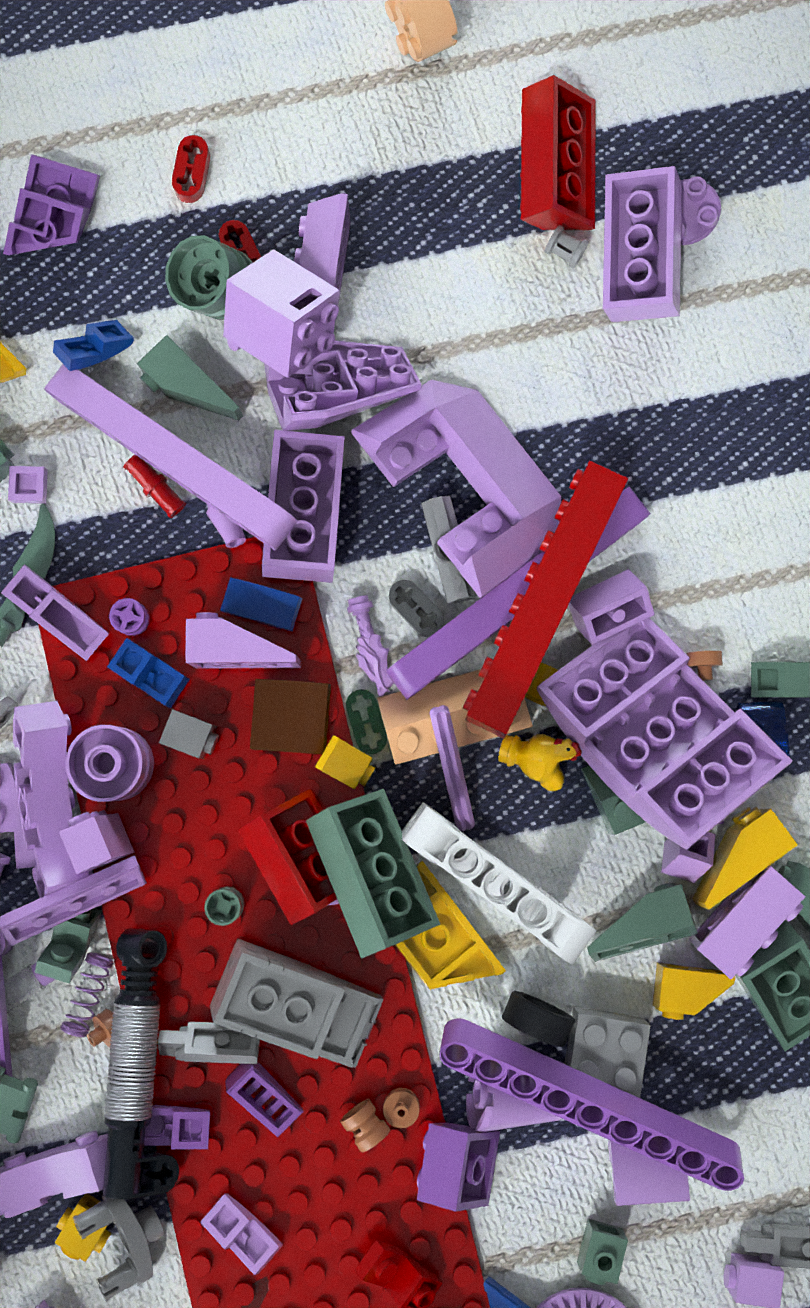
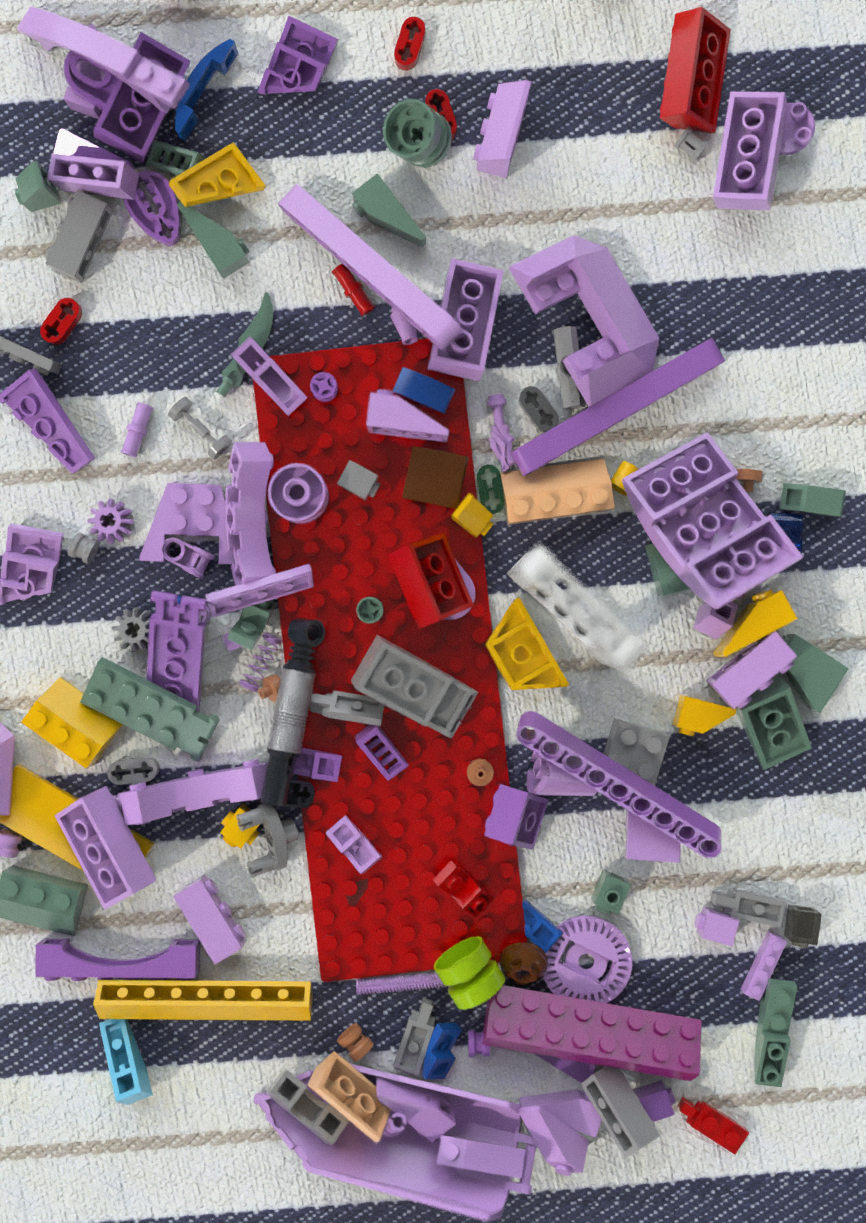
camera: 10 degrees right, 5 degrees up
(27, 484) = (257, 276): lavender plate -> none
(95, 840) = (284, 548): lavender brick -> none
(100, 343) = (324, 173): blue slope -> none
(148, 673) = (333, 431): blue slope -> none
(280, 313) = (468, 168): lavender container -> none
(340, 384) = (498, 225): lavender wedge -> none
(365, 1125) = (453, 780): nougat wheel -> none
(372, 872) = (483, 597): sand green brick -> none
(452, 767) = (550, 520): lavender axle -> none
(538, 1019) = (588, 721): black tyre -> none
(539, 757) = (616, 532): yellow animal -> none
(546, 599) = (639, 413): red brick -> none
(610, 606) = (685, 426): lavender brick -> none
(650, 922) = (681, 663): sand green slope -> none

